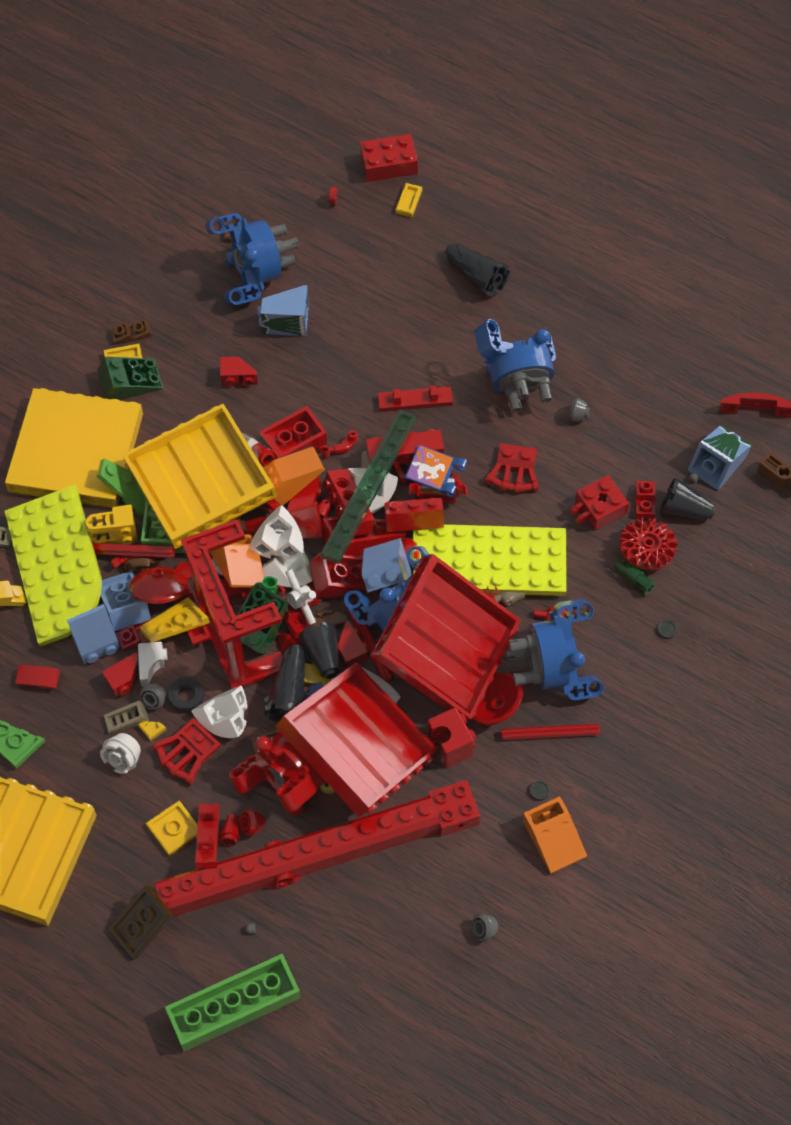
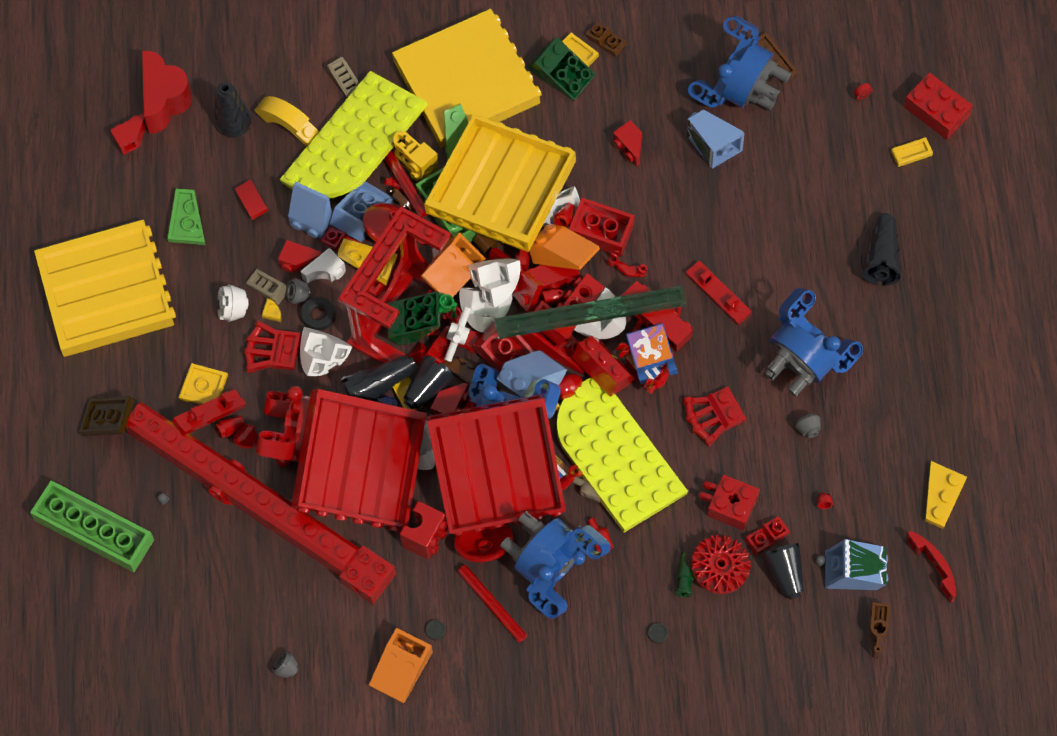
camera: 55 degrees right, 5 degrees up
(647, 442) = (824, 501): none -> red hinge
(703, 363) = (943, 492): none -> yellow wing

